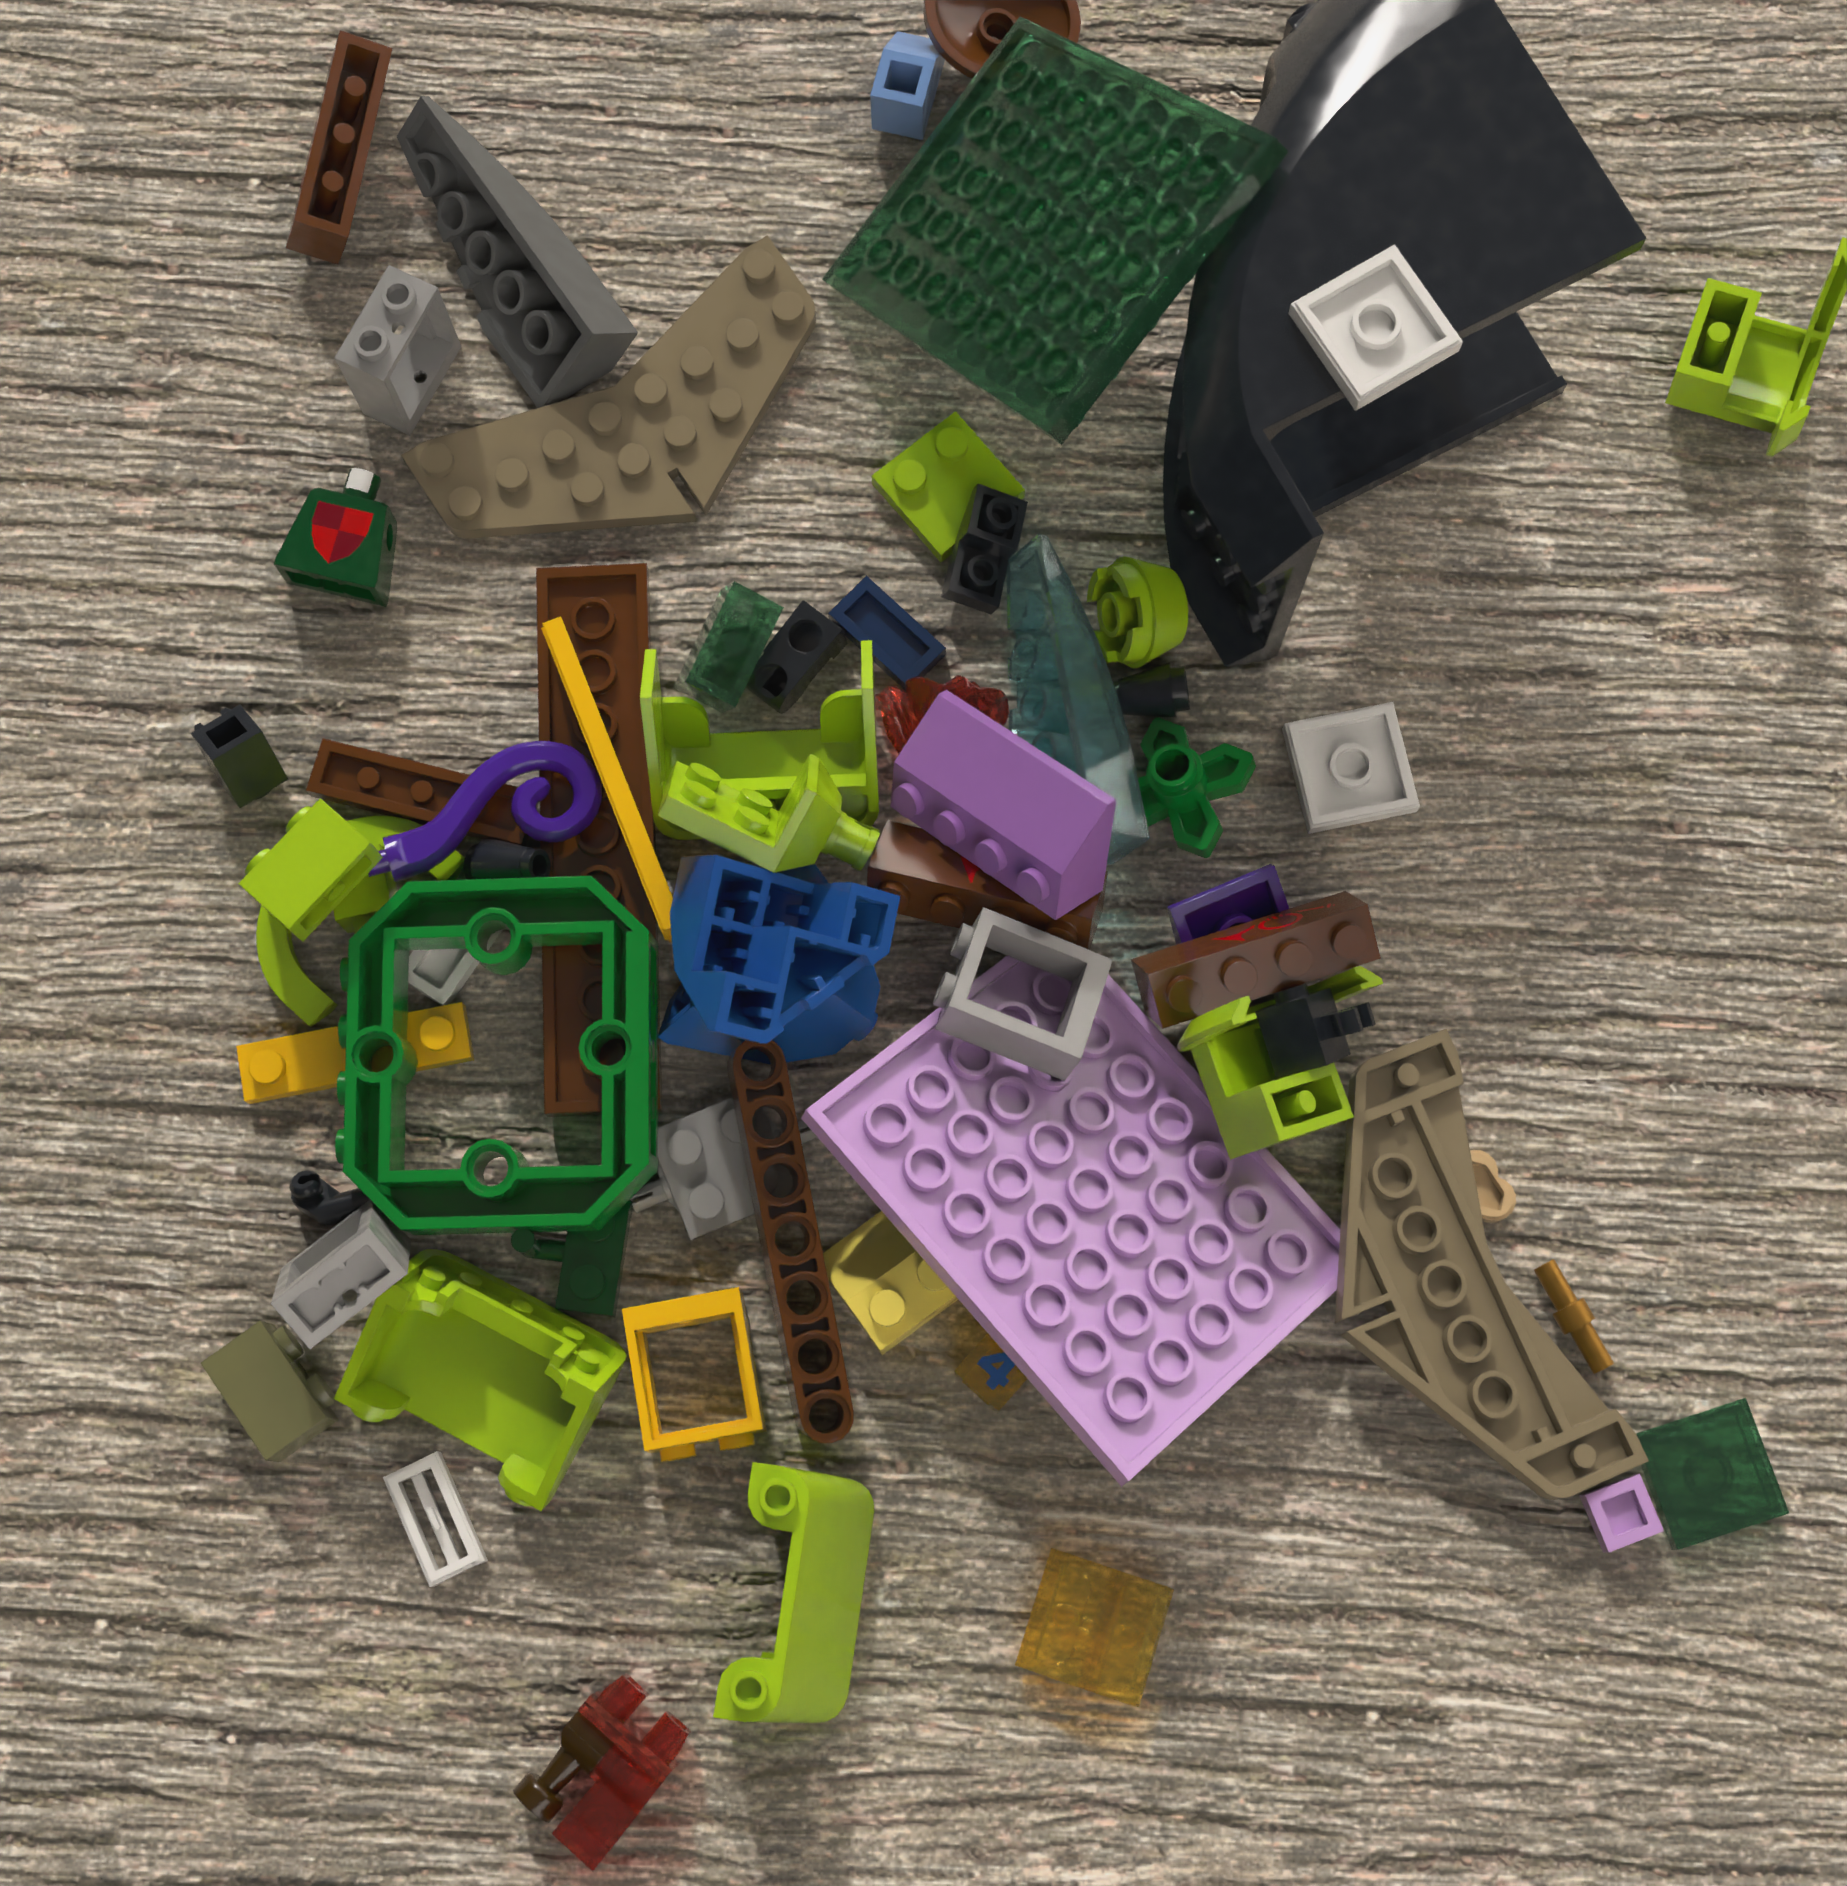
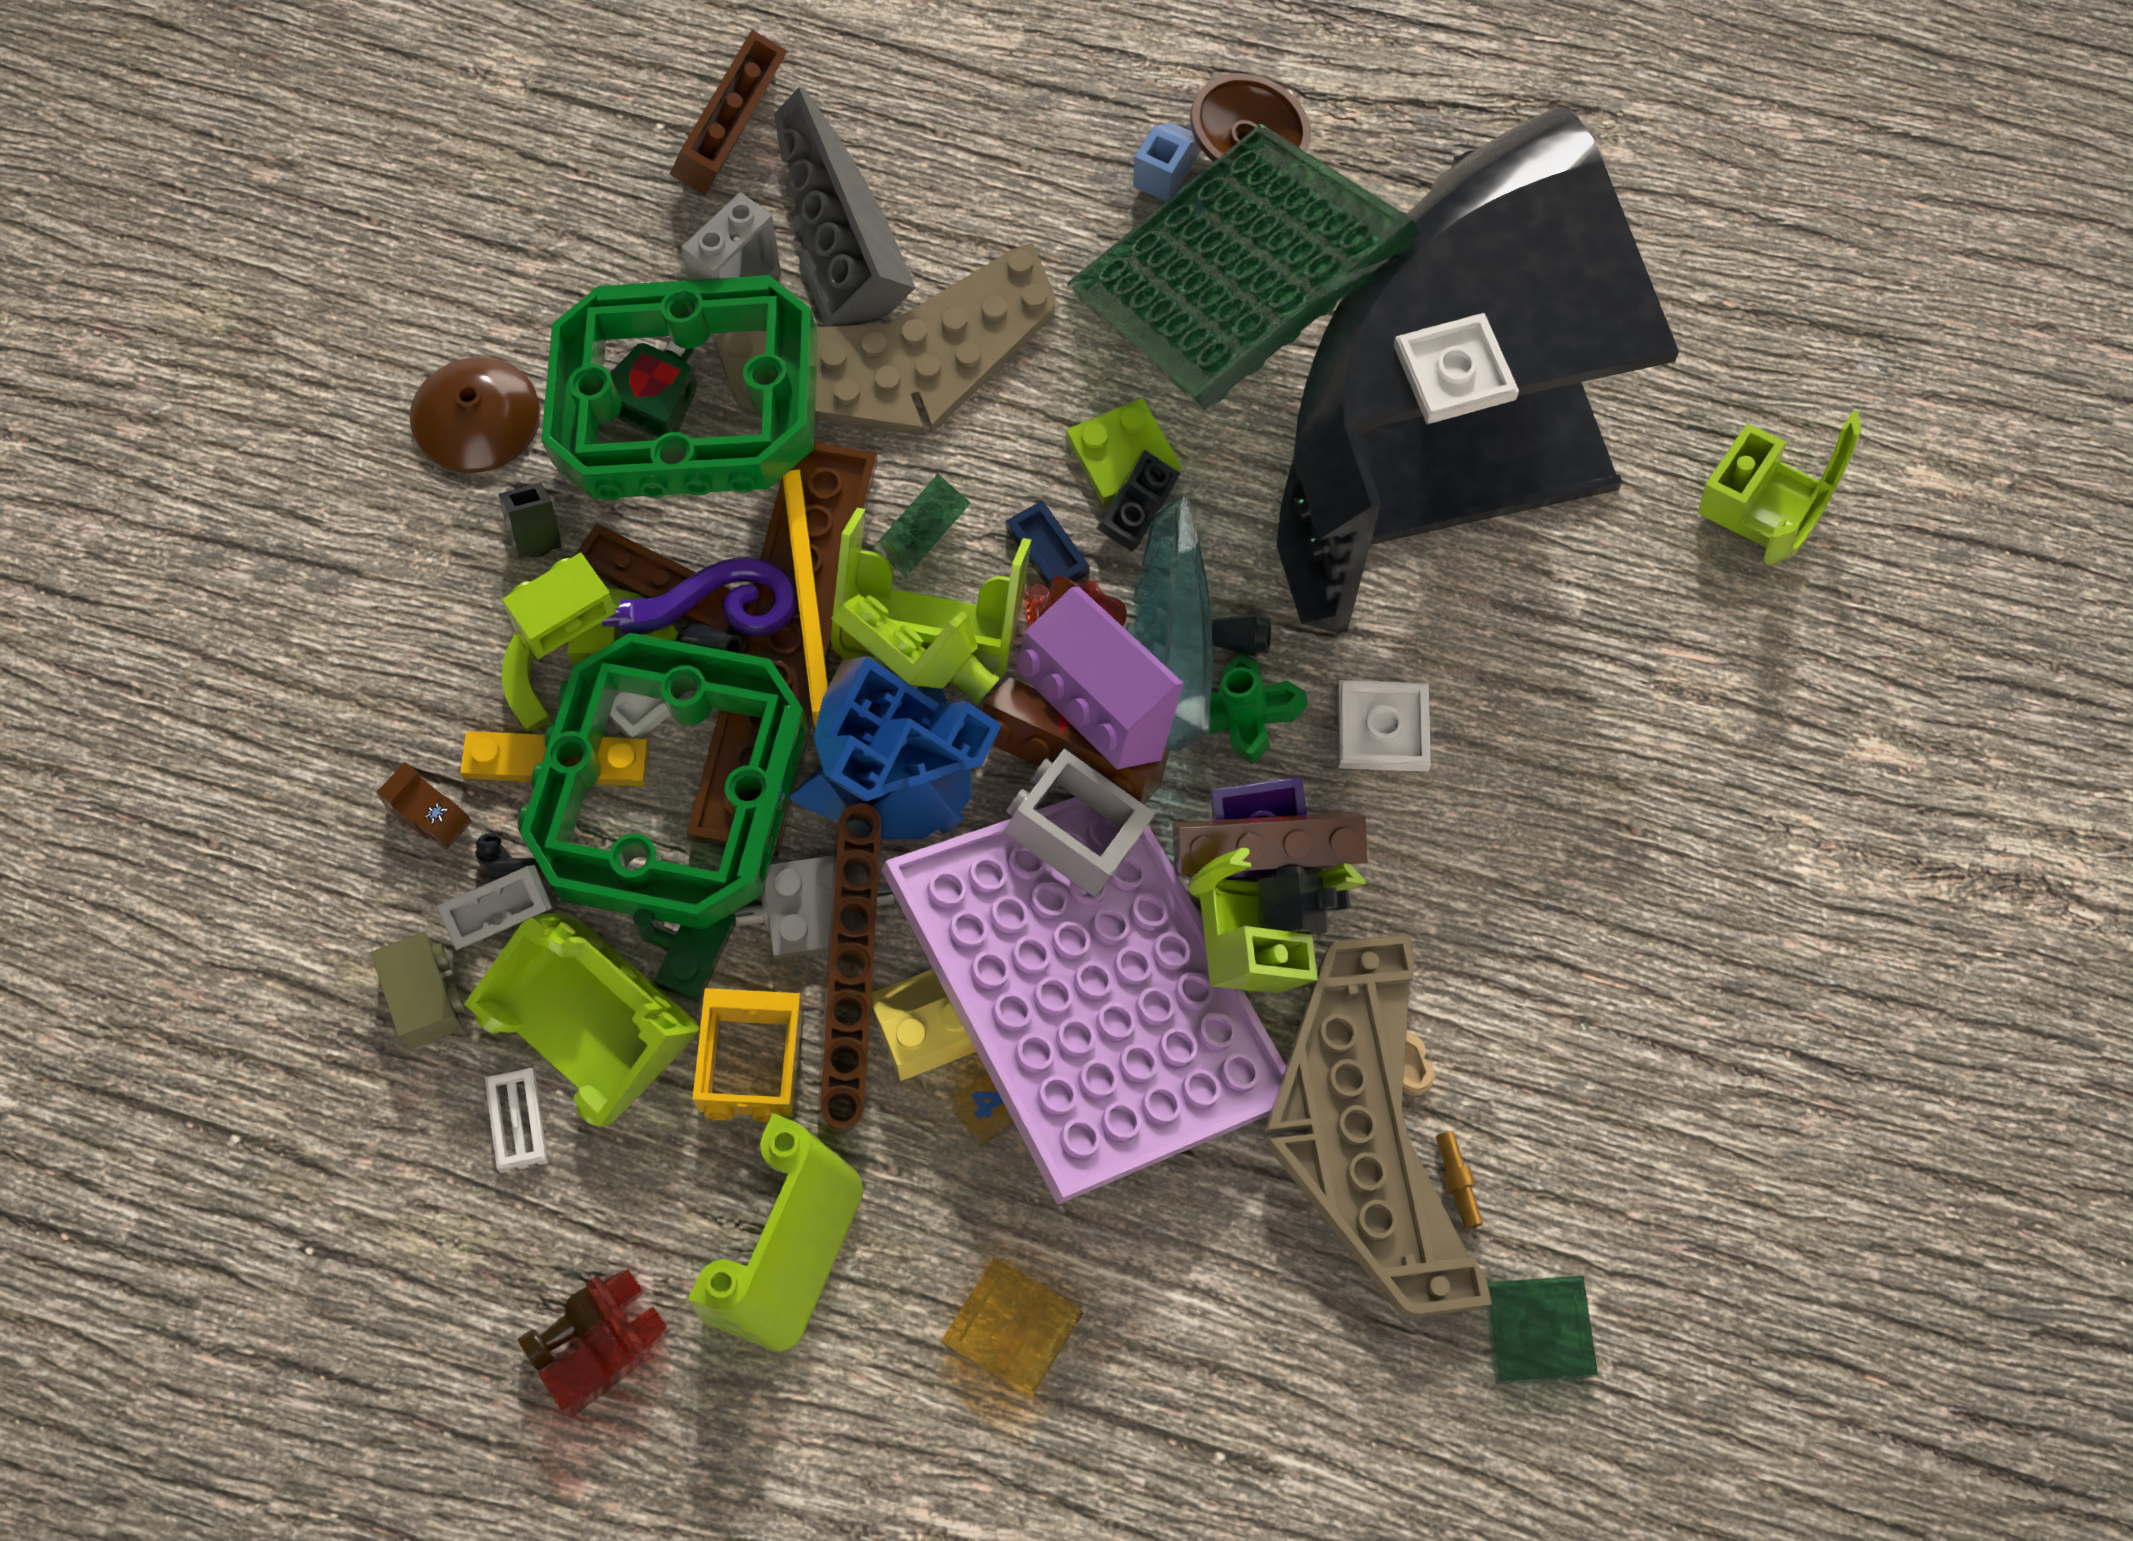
camera: 10 degrees right, 10 degrees down
(149, 647) = (478, 432): none -> reddish brown dish
(212, 1157) = (423, 807): none -> reddish brown leg
(325, 443) = (584, 396): none -> green panel
(795, 657) = (972, 546): black leg -> none
(1138, 610) = (1245, 568): lime cone -> none
(1621, 1513) = (1460, 1341): lavender plate -> none

